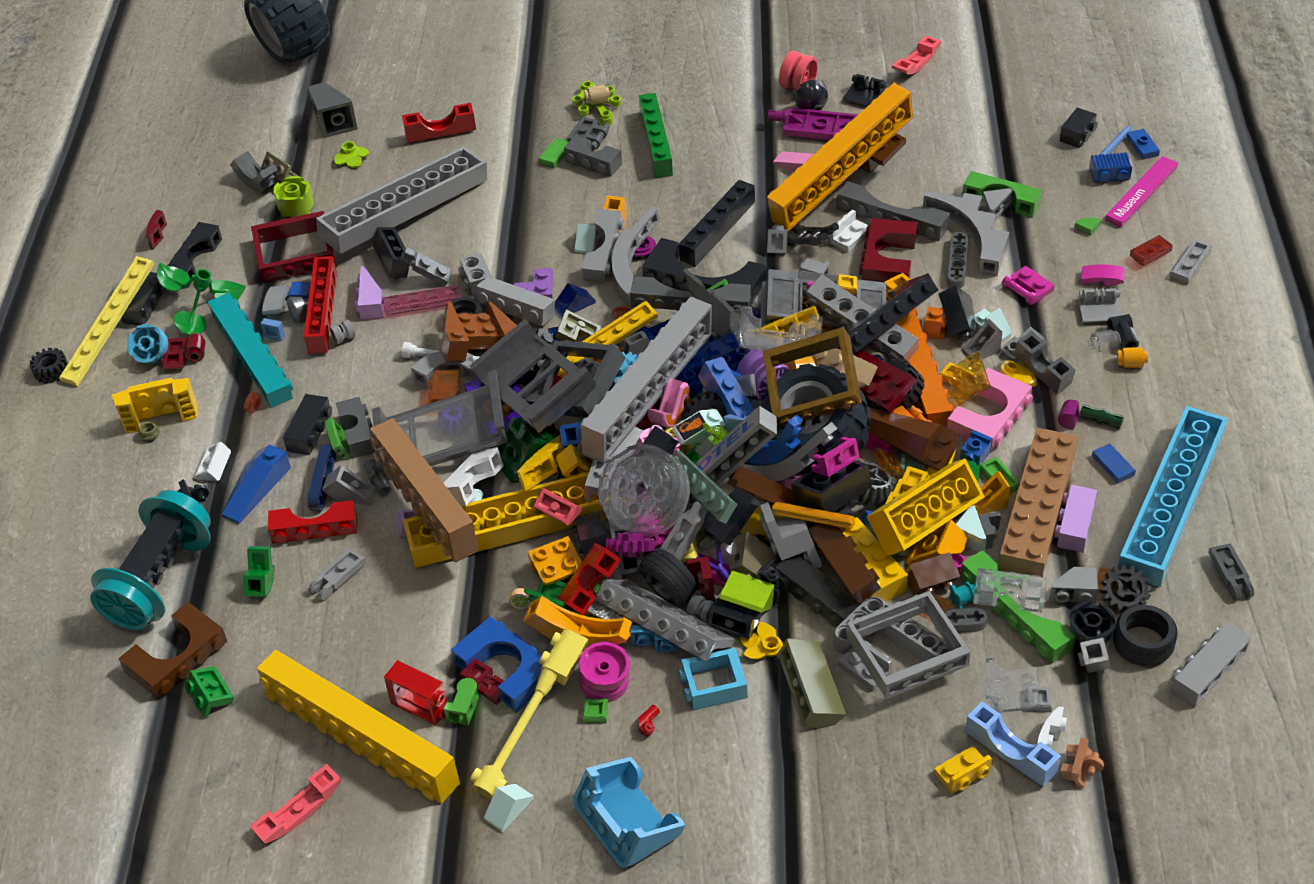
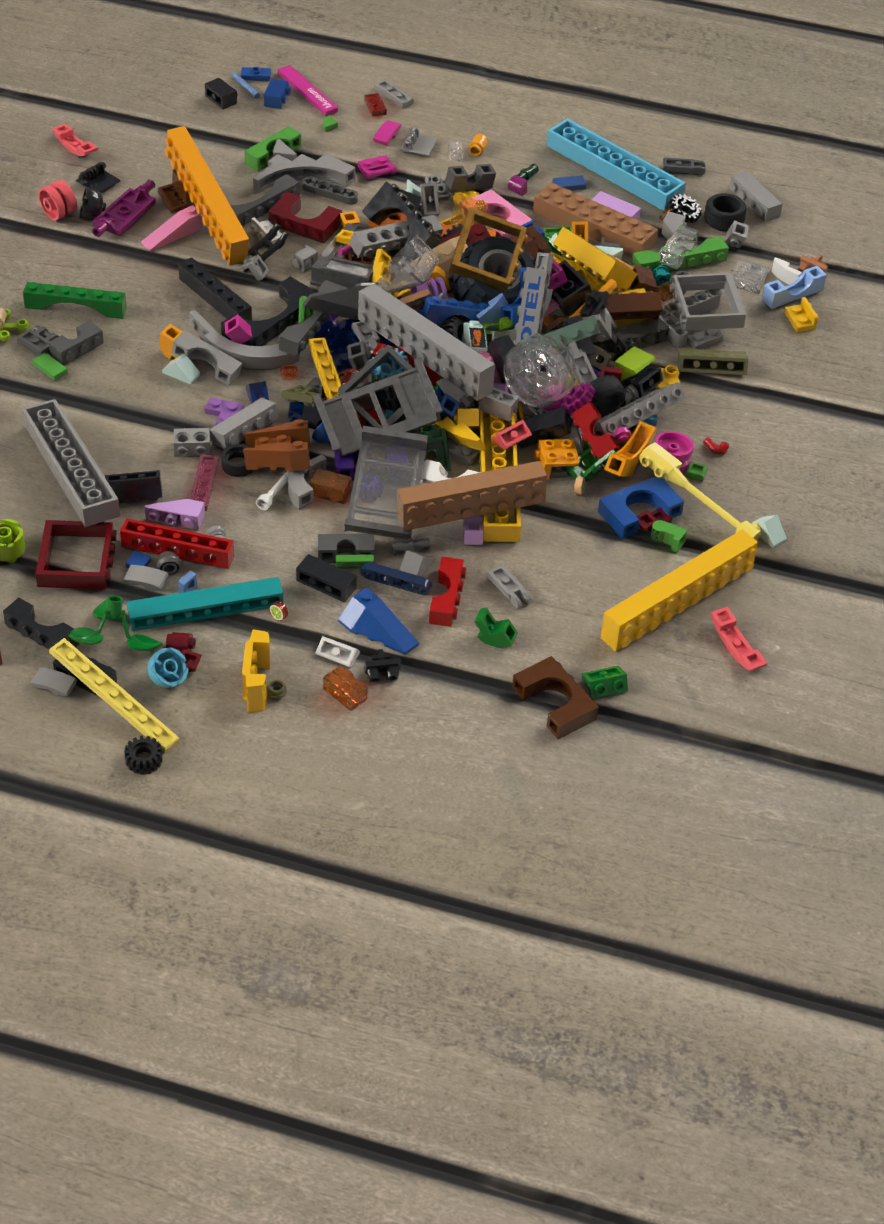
camera: 80 degrees left, 0 degrees up
(127, 593) = (472, 686): teal brick -> none
(155, 477) = (345, 687): none -> clear orange brick
(416, 692) = (660, 551): red window -> none
(426, 266) = (171, 465): dark grey hinge -> none
(599, 608) = (622, 434): none -> dark pink plate
(621, 813) = (807, 474): dark azure windscreen -> none
(639, 247) = (238, 329): none -> dark pink brick
(716, 350) = (416, 300): none -> medium nougat plate
(718, 694) = (694, 393): medium azure window -> none
(798, 509) = (594, 302): none -> black hips
(1091, 622) = (713, 225): black cylinder -> none
(1124, 326) = (448, 138): black piece -> none

